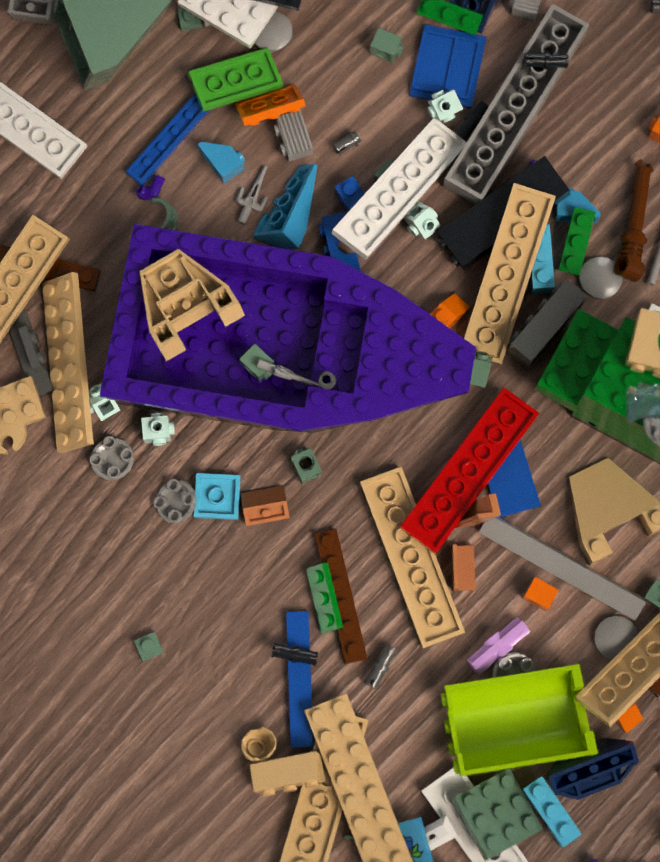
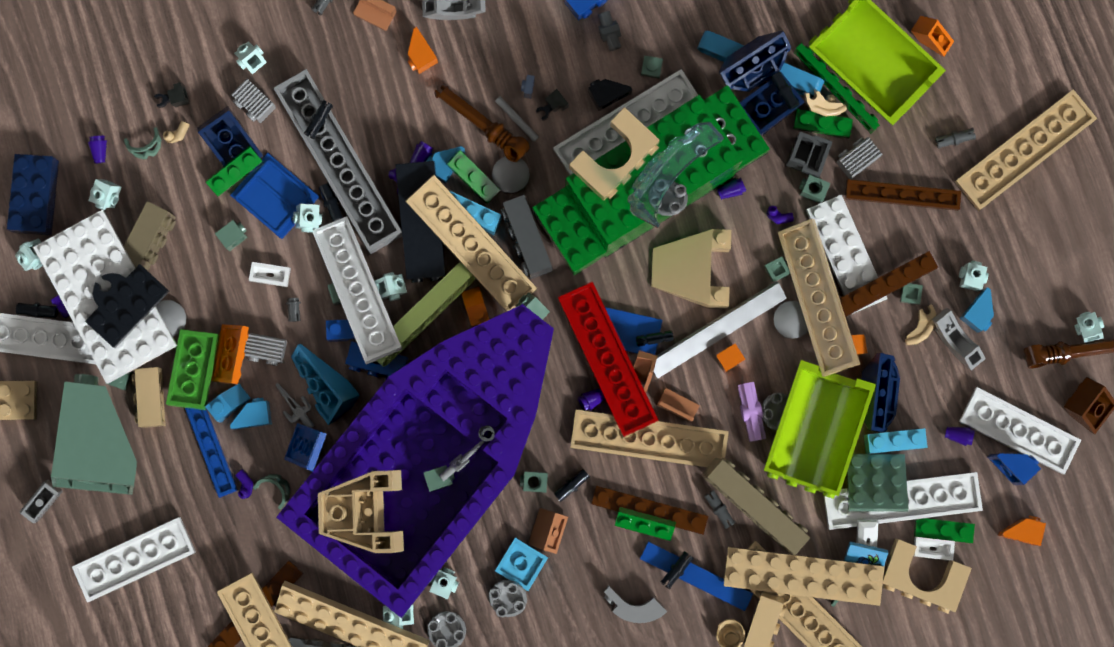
camera: 65 degrees left, 5 degrees up
(186, 55) = (149, 397): none -> tan brick
(218, 220) = (305, 447): none -> blue tile
(221, 129) = (227, 403): none -> dark azure slope
(231, 642) = (634, 613): none -> light grey arch
(323, 504) = (571, 485): none -> black pin
(364, 92) = (259, 274): none -> white piece
(403, 698) = (755, 506): none -> dark tan brick
(419, 476) = (590, 399): none -> dark purple cone
(420, 268) = (430, 307): none -> yellowish green beam
(517, 506) = (654, 338): none -> black axle
(573, 179) = (421, 152): none -> dark purple cone

